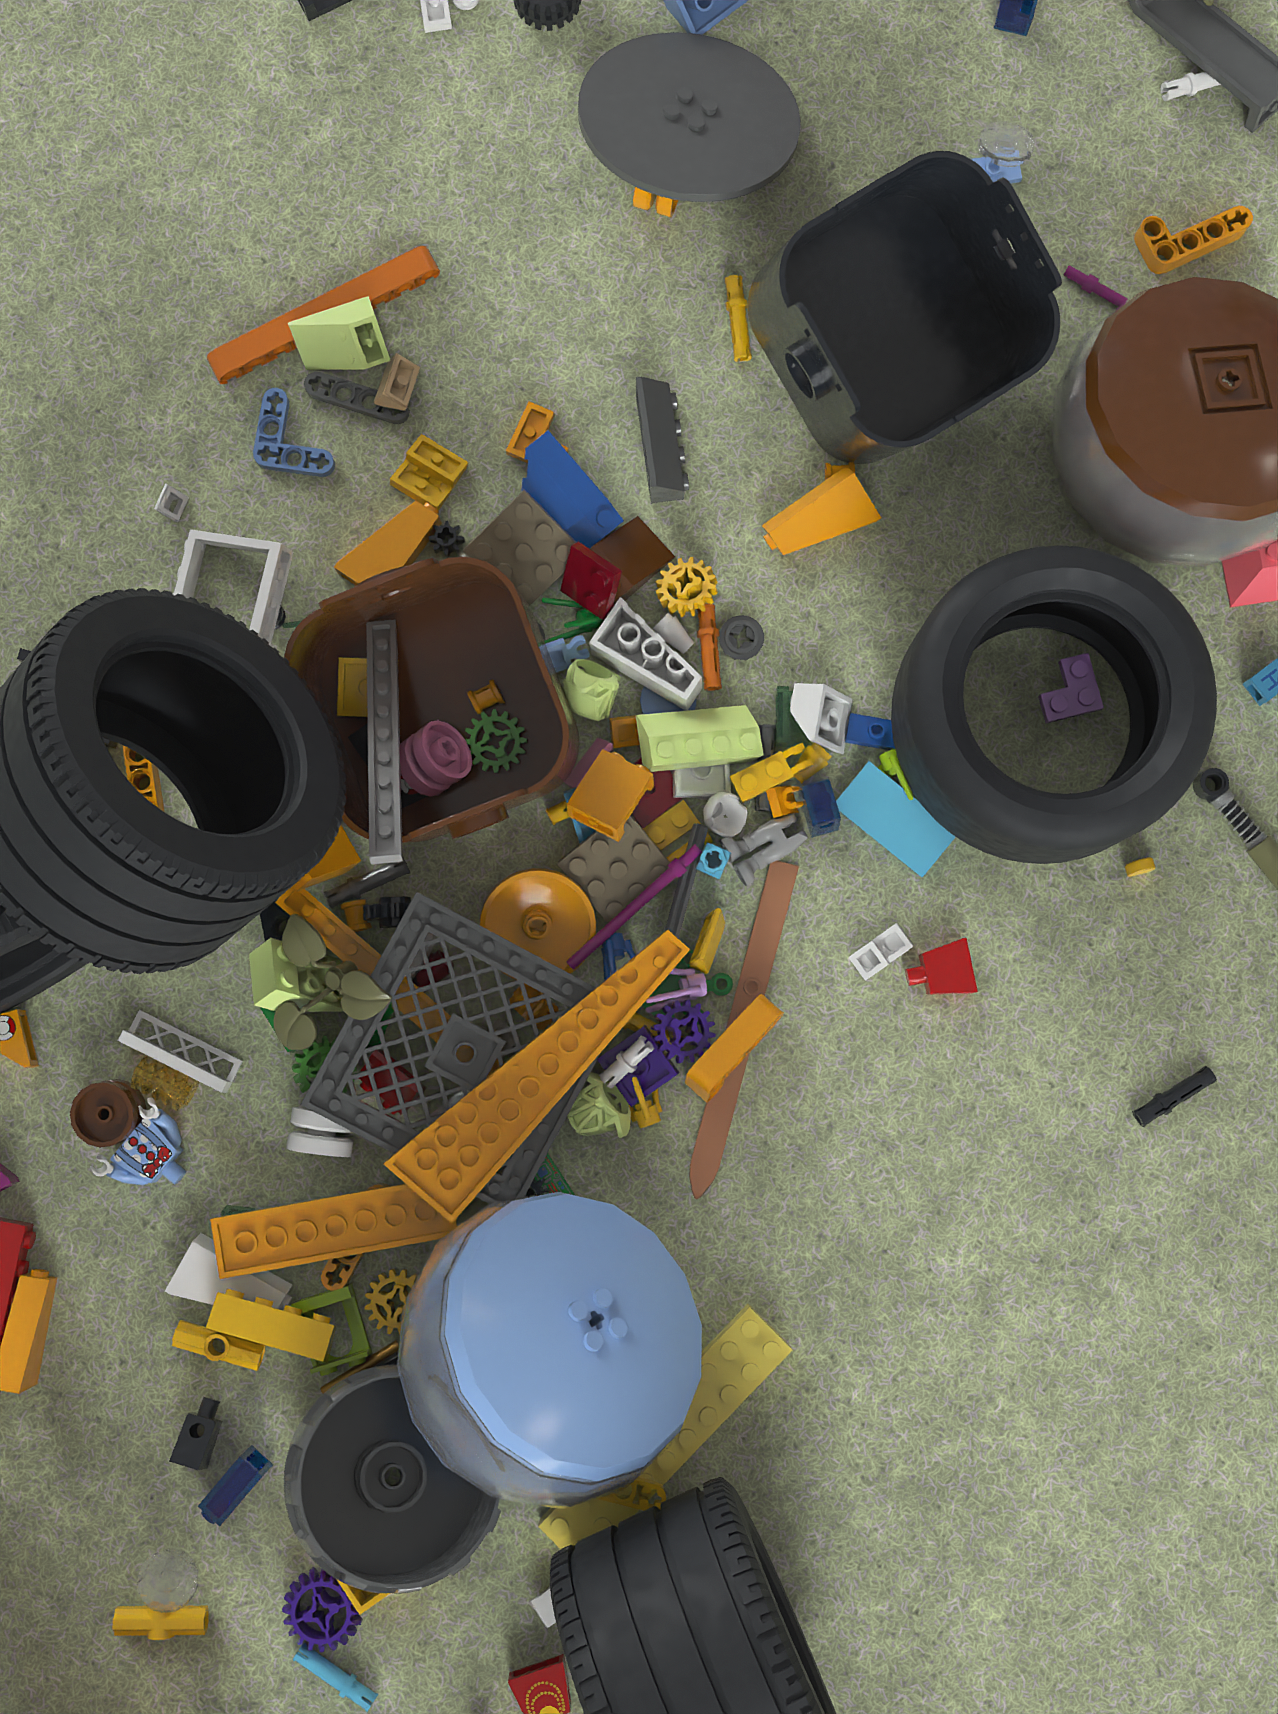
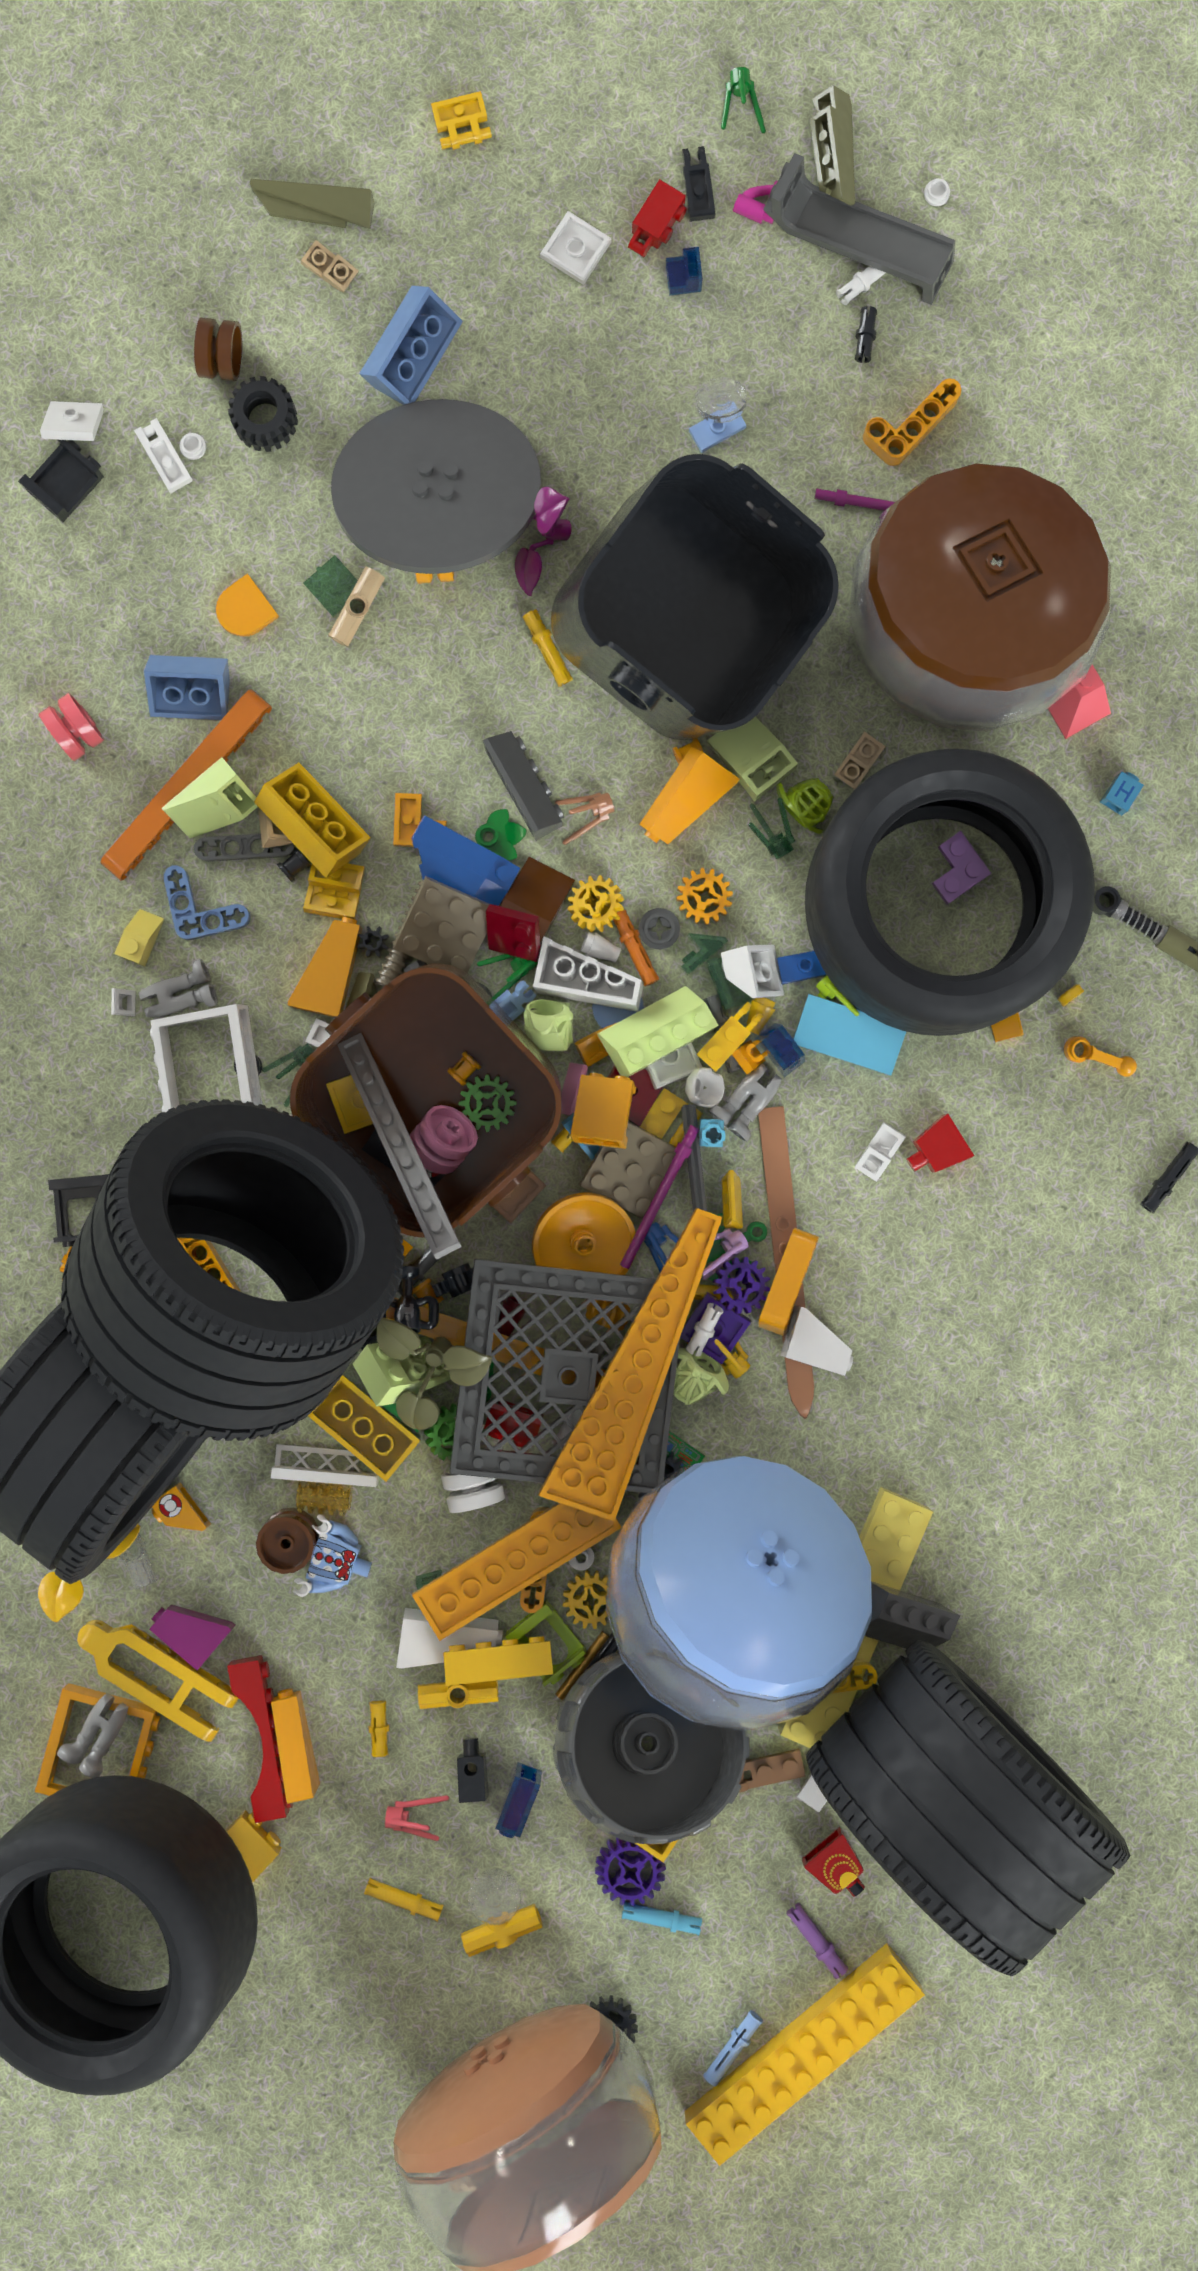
camera: 20 degrees left, 5 degrees up
(72, 1545) = (403, 1899): none -> yellow pin
(102, 1454) = (398, 1818): none -> coral plant
(121, 1350) = (378, 1728): none -> yellow pin
(214, 446) = (139, 937): none -> light yellow slope
(221, 505) = (166, 988): none -> light grey piece
(232, 213) = (73, 725): none -> coral wheel
(233, 1025) = (364, 1428): none -> yellow brick
(329, 916) = (407, 1307): none -> black piece
(363, 220) = (187, 687): none -> medium blue slope
(398, 433) = (294, 865): none -> black bush
(405, 1262) = (585, 1564): none -> white plate
(433, 393) = (312, 819): none -> yellow brick
(452, 168) = (244, 608): none -> light orange tile
(491, 851) = (520, 1197): none -> medium nougat plate
(512, 1561) = (773, 1769): none -> medium nougat plate
(549, 180) = (331, 585): none -> clear green piece
(576, 194) = (363, 591): none -> tan piece
(622, 483) = (504, 834): none -> green plate
(715, 1449) = (905, 1618): none -> dark grey slope
(729, 492) = (598, 803): none -> nougat plant
(736, 1124) = (815, 1344): none -> white slope
(783, 674) = (707, 946): none -> clear green slope
(790, 174) = (548, 509): none -> magenta plant
(808, 629) = (717, 899): none -> light orange gear
(896, 598) = (776, 844): none -> clear green plant
(905, 501) = (754, 757): none -> yellowish green slope
(940, 566) = (807, 802): none -> lime piece
(1018, 539) = (859, 760): none -> tan slope
(1061, 875) = (1007, 1028): none -> light orange slope
(1169, 962) = (1125, 1065): none -> light orange piece
(1175, 136) = (865, 334): none -> black pin

